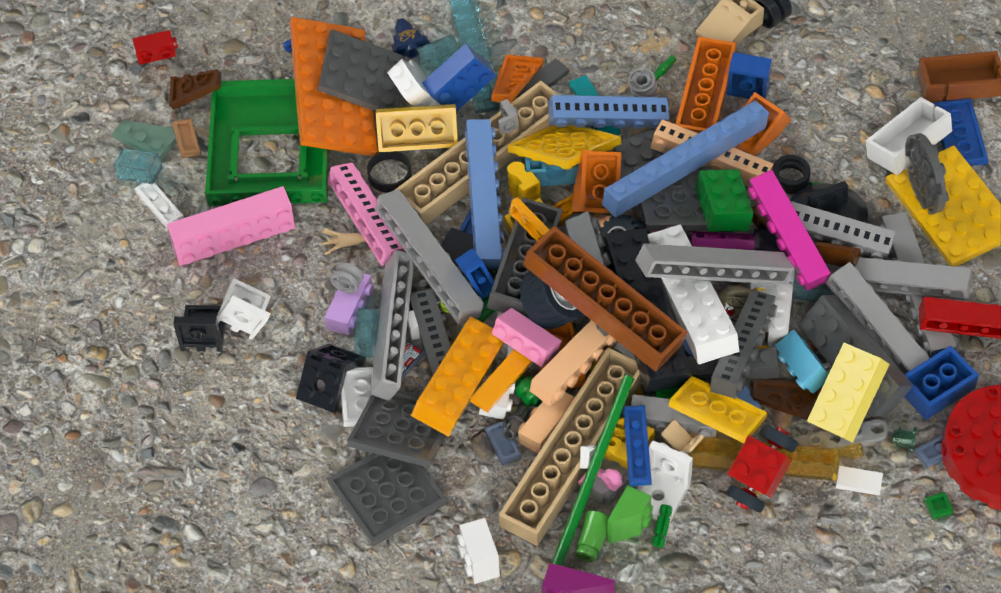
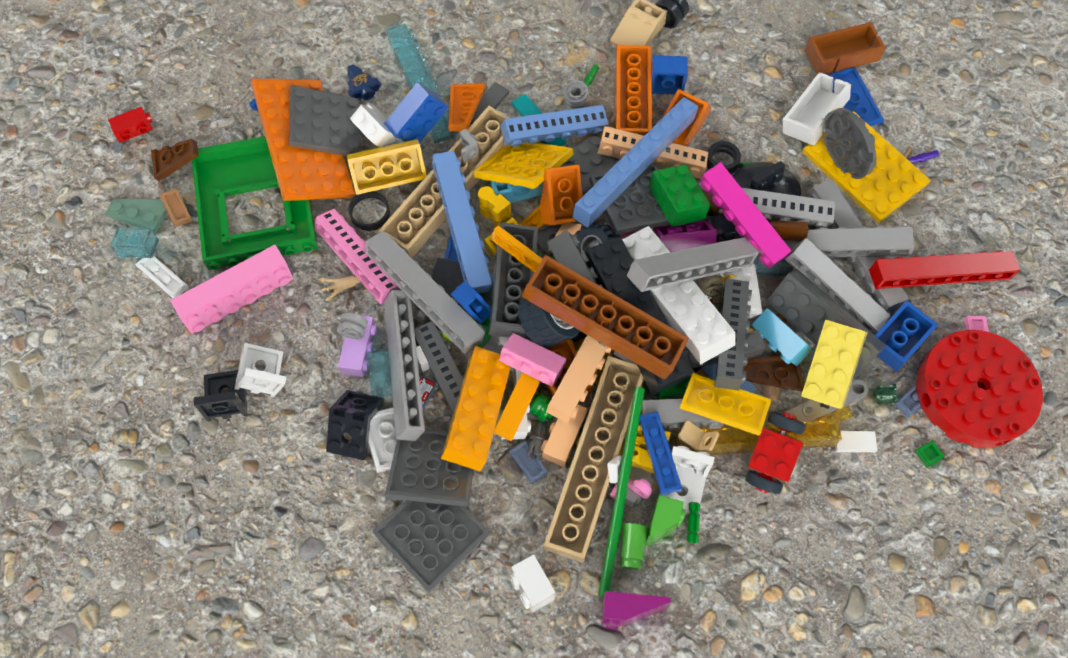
camera: 15 degrees left, 10 degrees up
(436, 53) = (390, 94): clear light blue brick -> none

